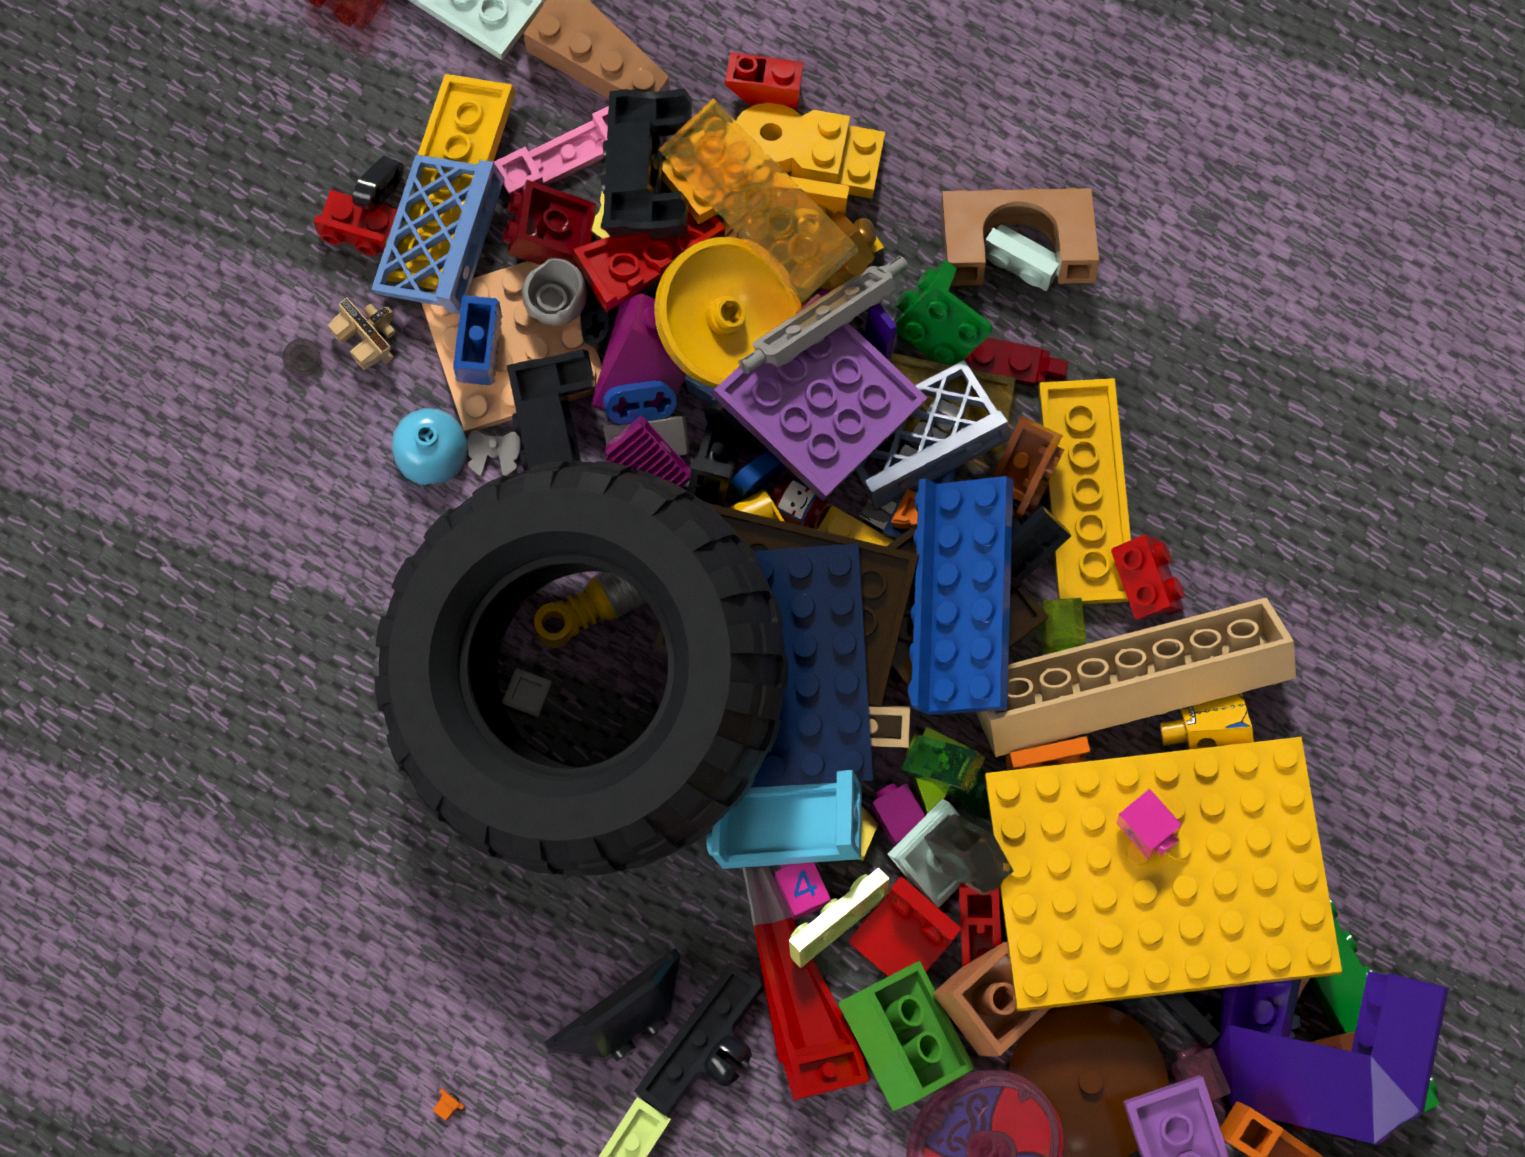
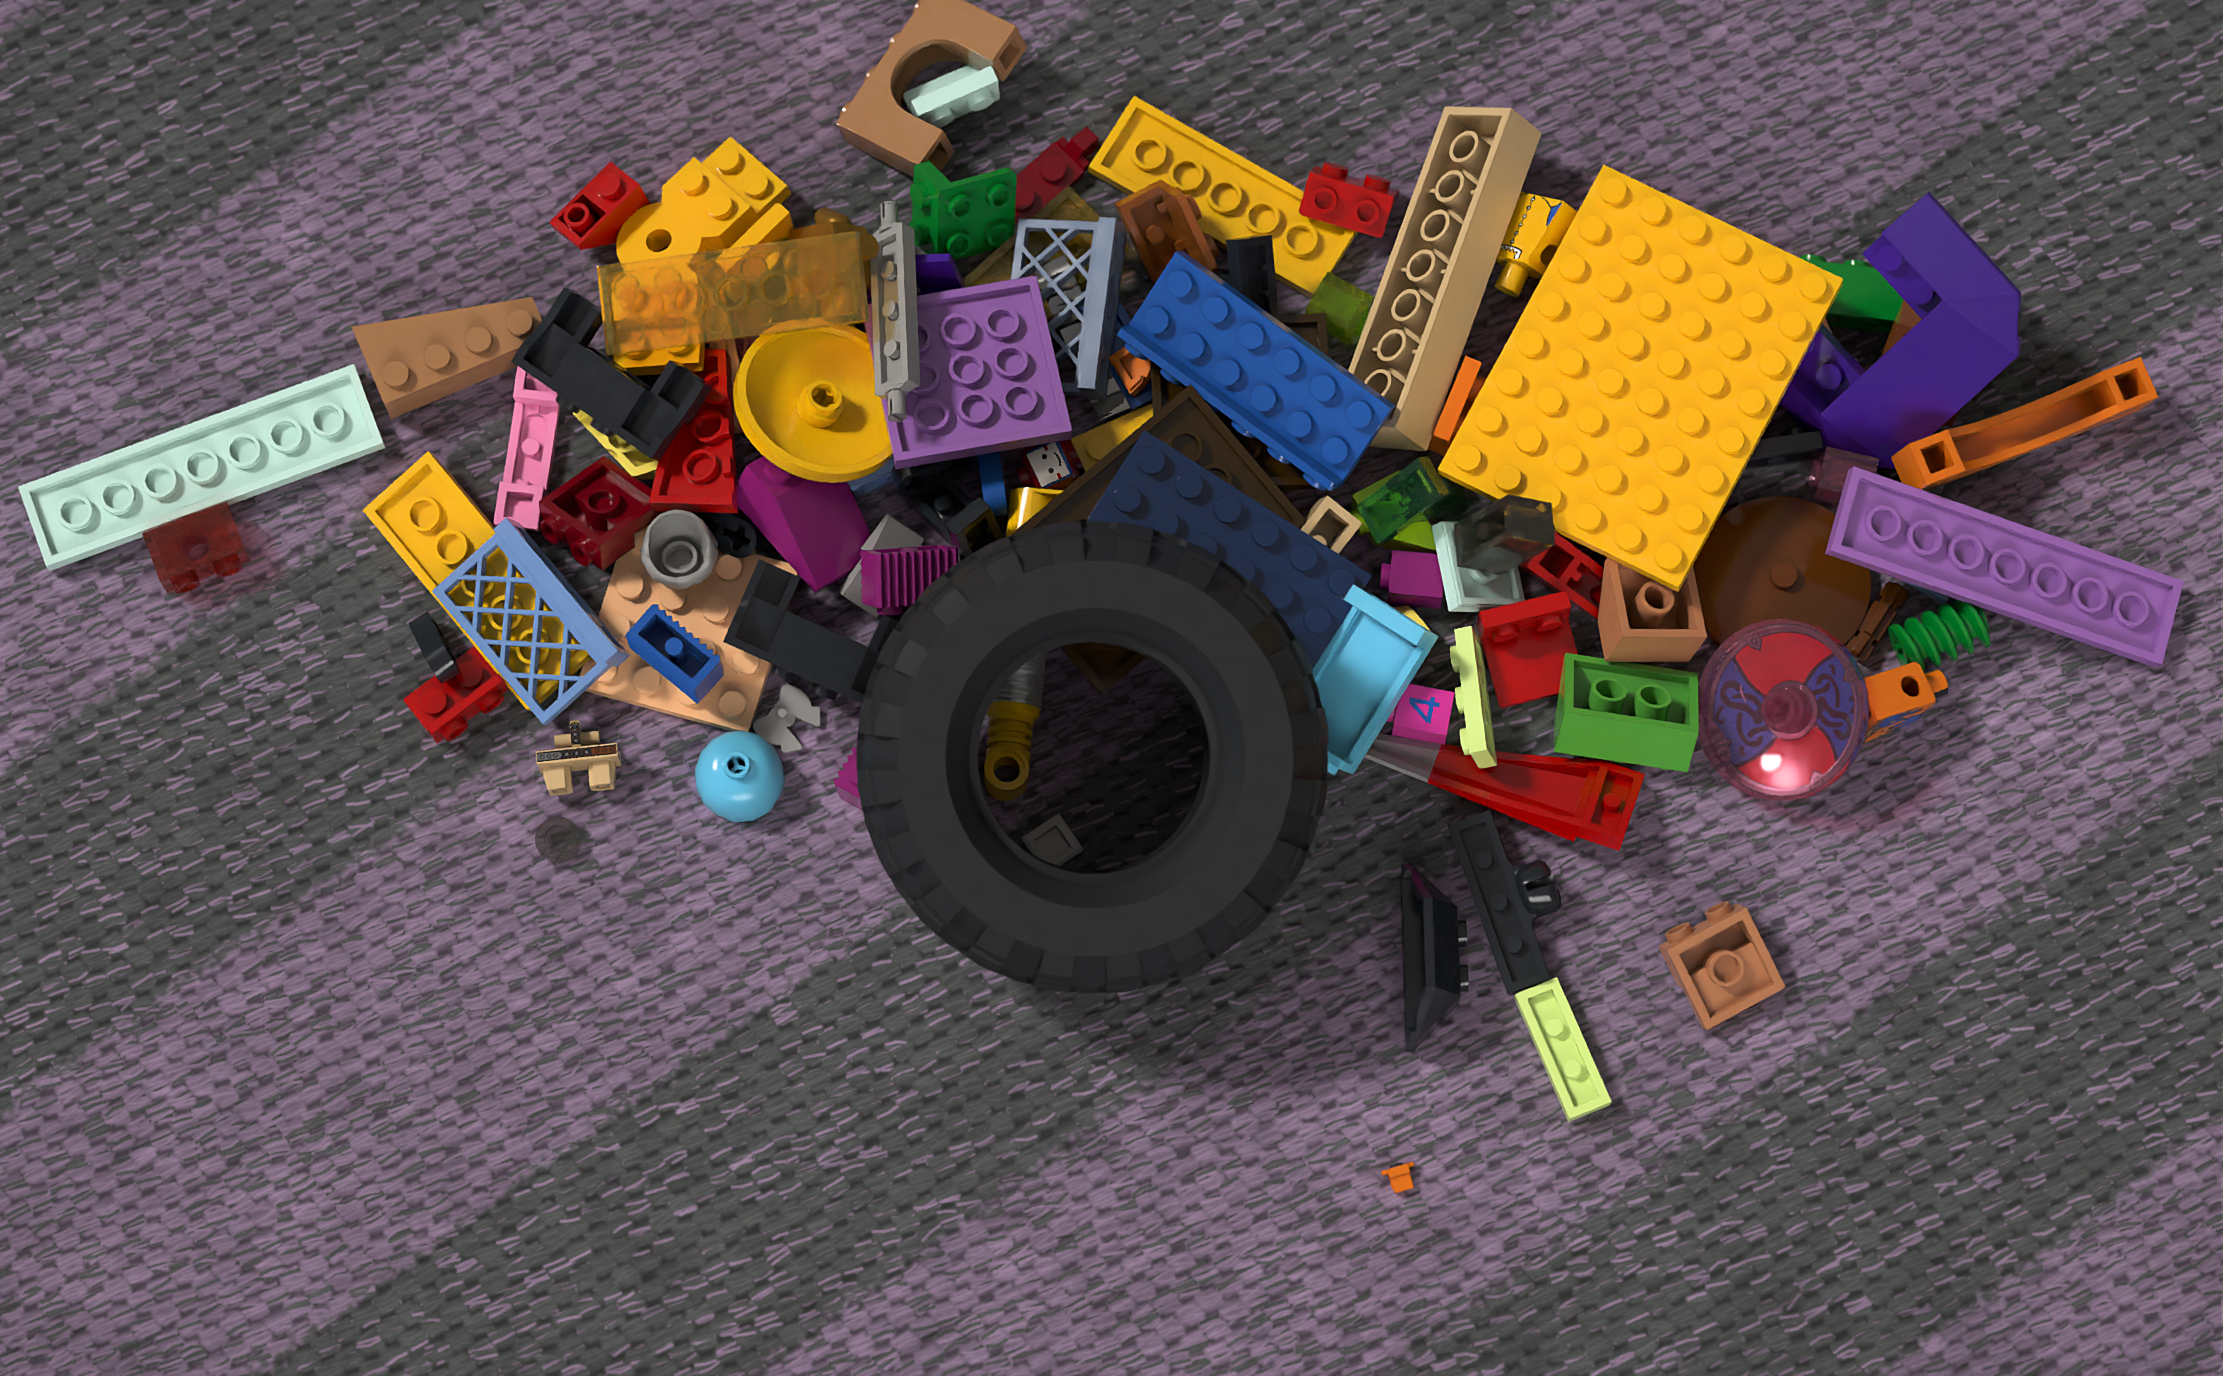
camera: 50 degrees left, 0 degrees up
(639, 393) = (841, 542): blue beam -> none
(1150, 825) = (1596, 351): dark pink brick -> none

